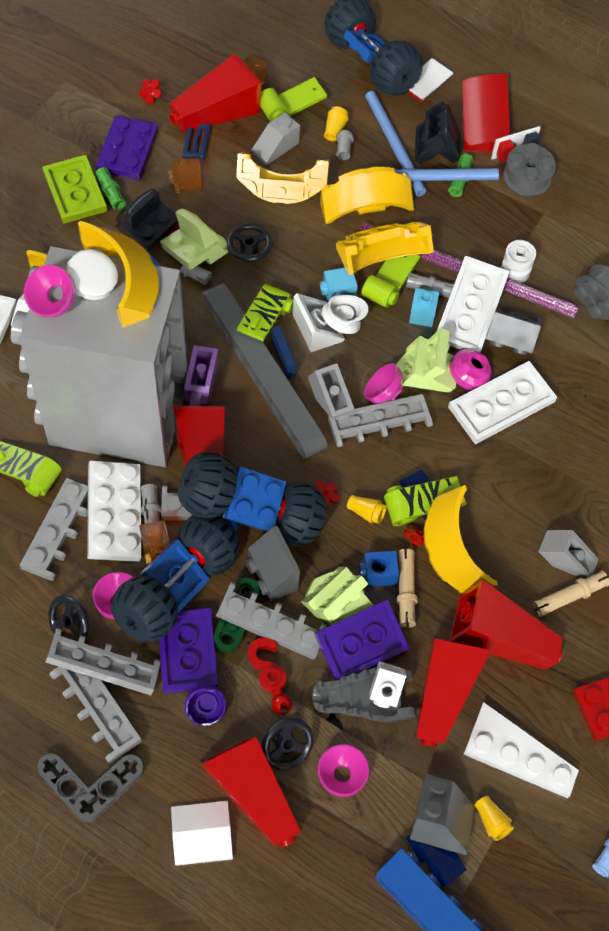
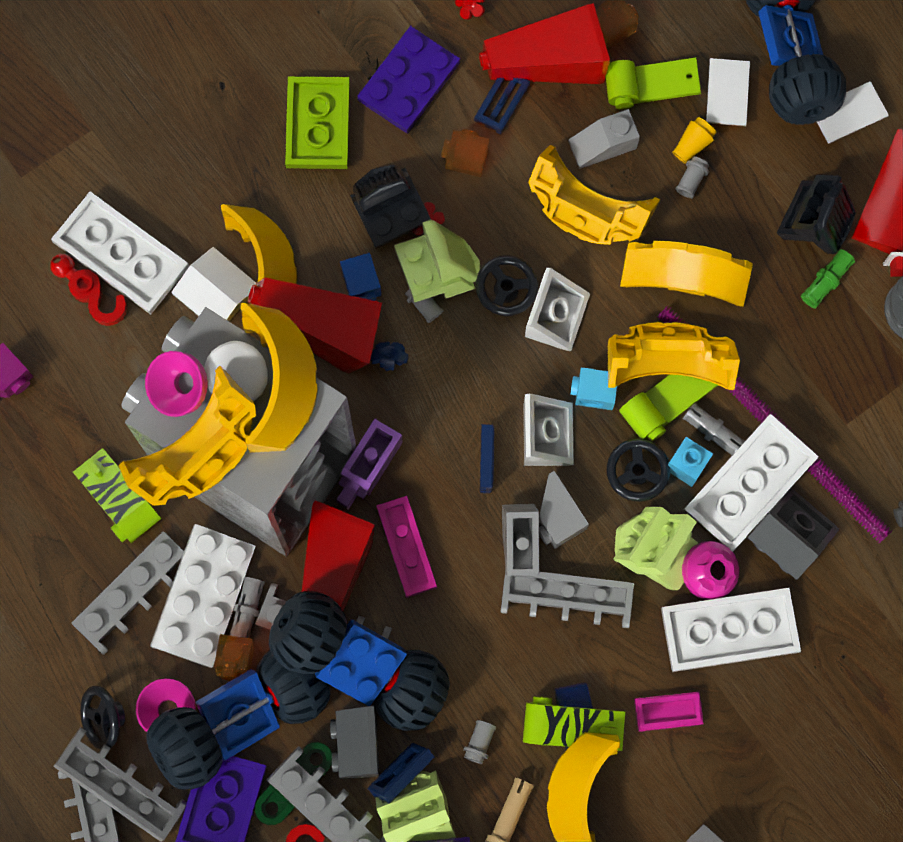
camera: 25 degrees right, 15 degrees up
(91, 329) = (202, 453): none -> yellow windscreen
(110, 188) = (363, 137): bright green pin -> none
(190, 310) = (389, 355): none -> dark blue plant
(252, 428) = (406, 546): none -> dark pink plate
(265, 311) = (484, 396): lime door -> none
(265, 373) = (452, 473): dark grey beam -> none
(290, 248) = (557, 311): none -> white slope
(314, 575) = (401, 772): none -> dark blue tile
(328, 491) = (461, 666): red plant -> none
(344, 90) = (728, 92): none -> white piece
(344, 313) = (583, 435): white piece -> none
(353, 367) = (559, 514): none -> light grey slope
(361, 537) = (479, 742): none -> light grey pin
(369, 509) = (503, 710): yellow cone -> none
(384, 384) = (590, 553): dark pink piece -> none
(387, 561) = (497, 791): blue brick -> none
(388, 333) = (629, 477): none -> black piece
(393, 139) = (762, 196): medium blue piece -> none
(415, 534) = (544, 763): red plant -> none
(450, 174) = (786, 271): medium blue piece -> none
(485, 470) = (668, 711): none -> dark pink tile
(519, 260) = (840, 441): white wheel -> none

